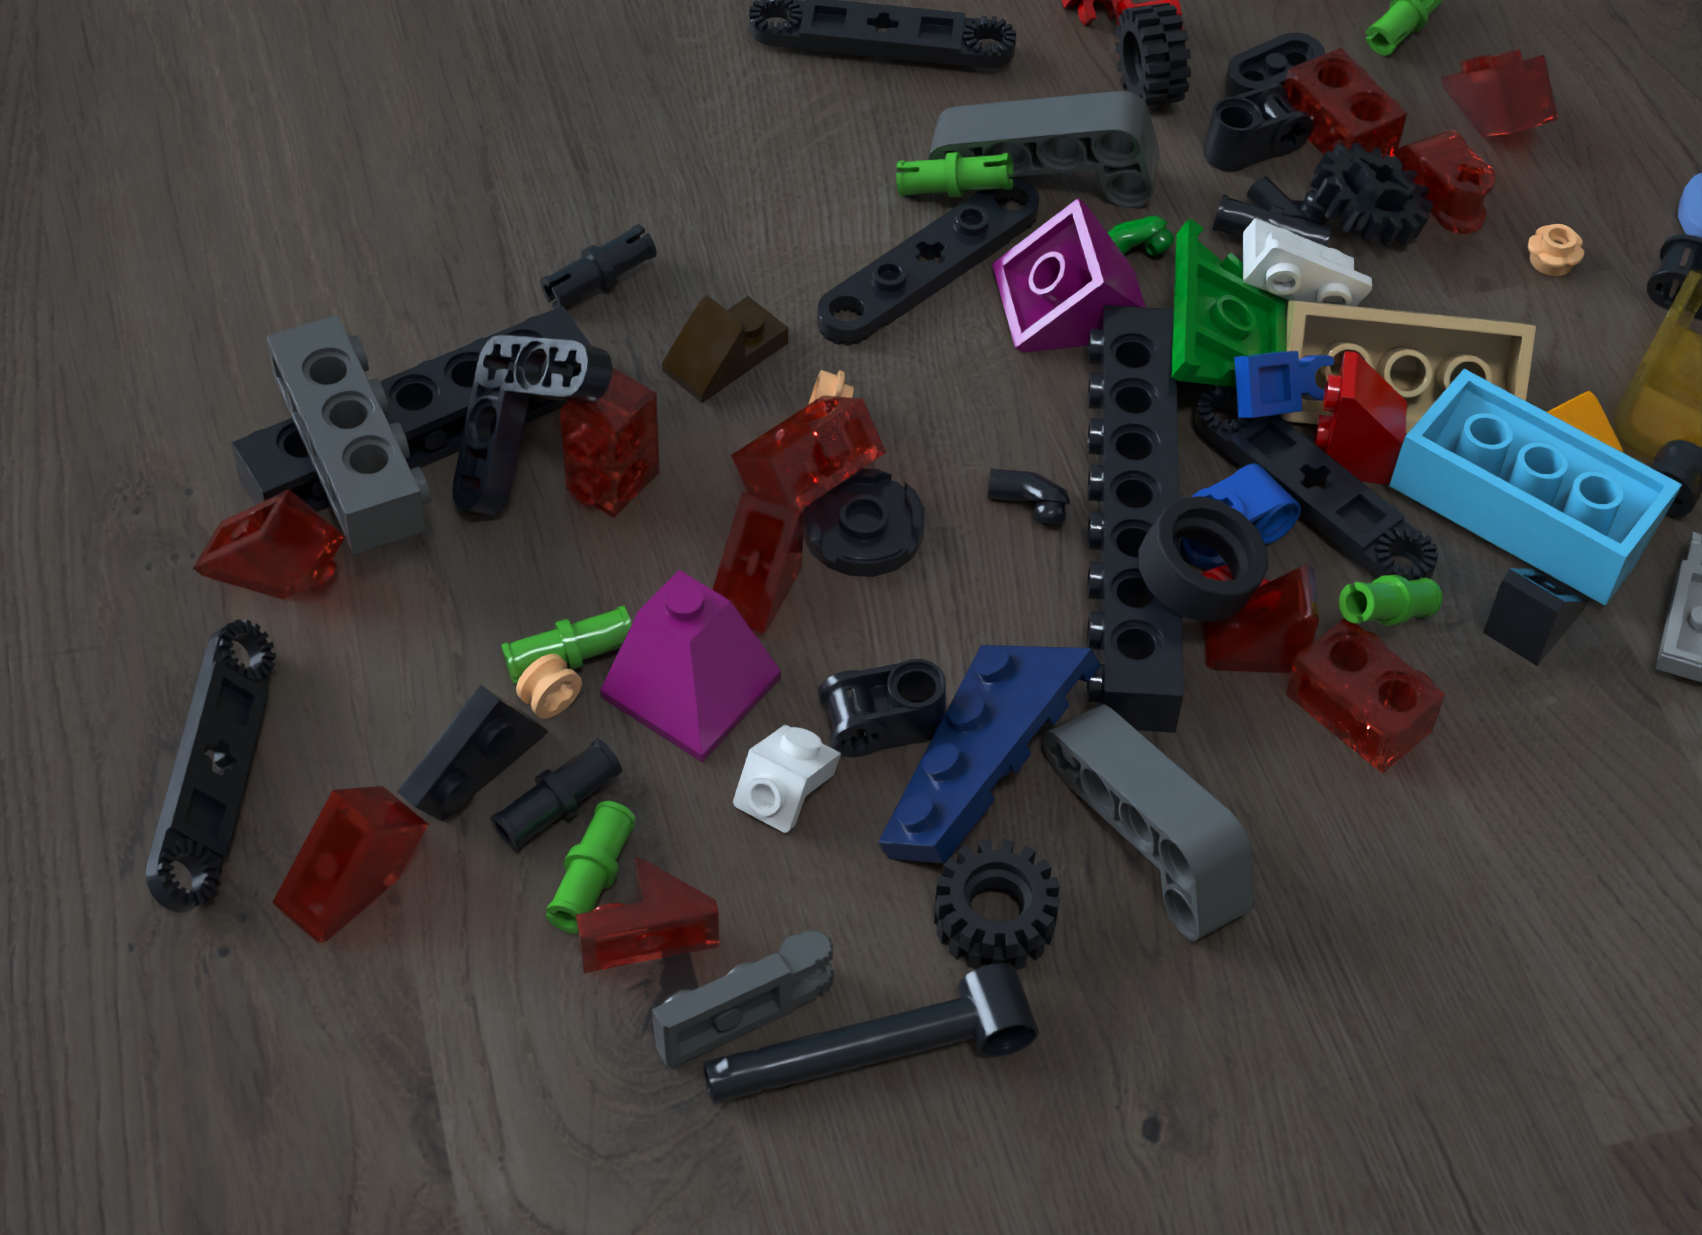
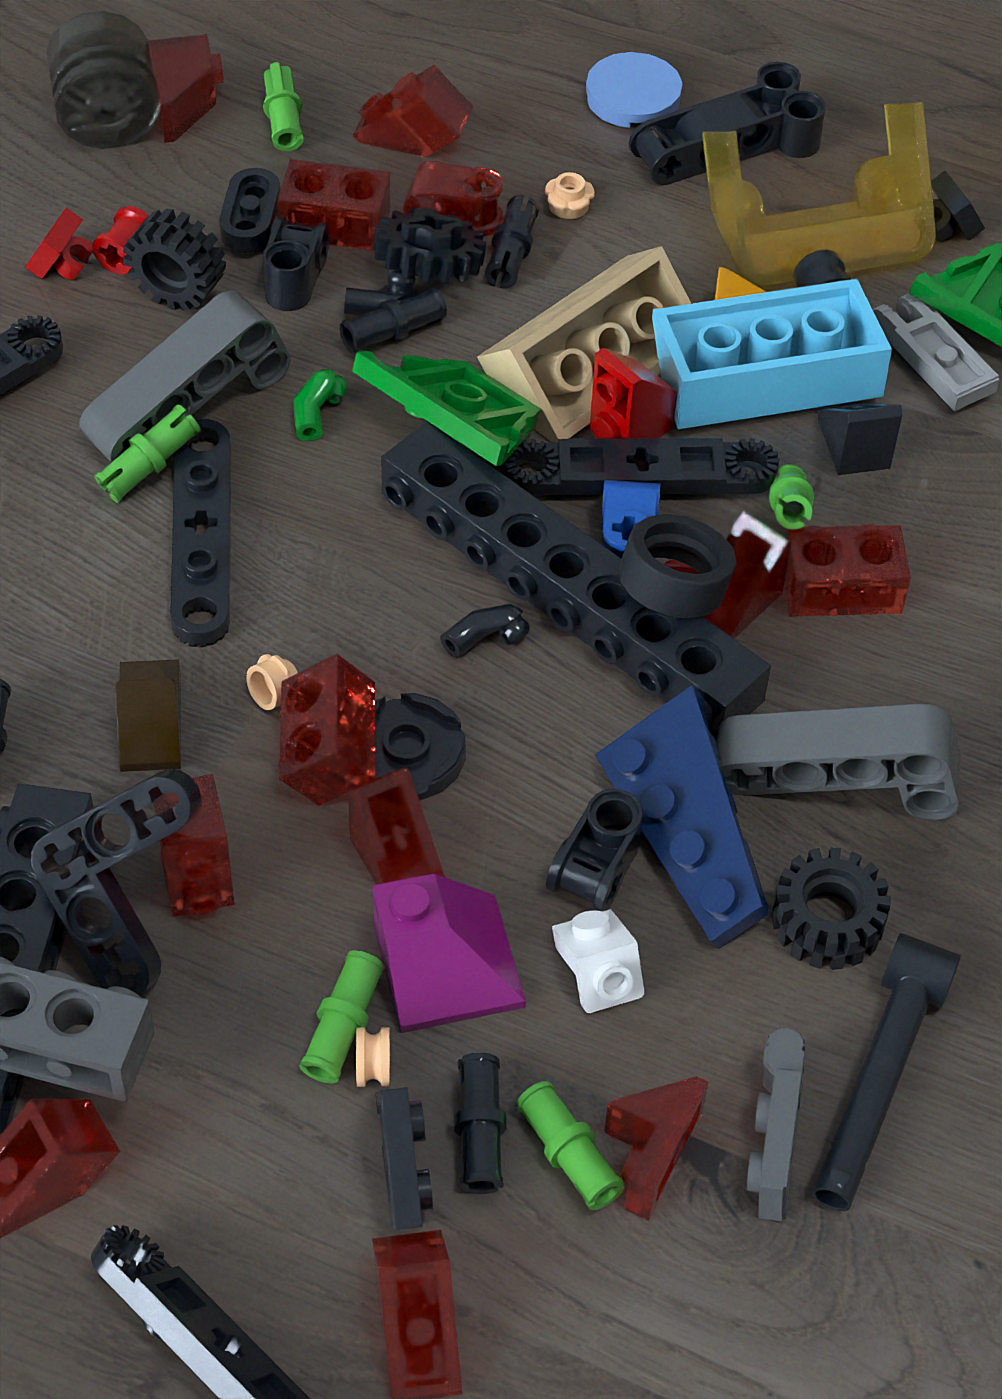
camera: 50 degrees left, 0 degrees up
(1061, 281) = (320, 467): magenta slope -> none
(1277, 382) = (553, 415): blue plate -> none
(1299, 267) = (456, 330): white bracket -> none
(1454, 246) = (512, 241): none -> black pin

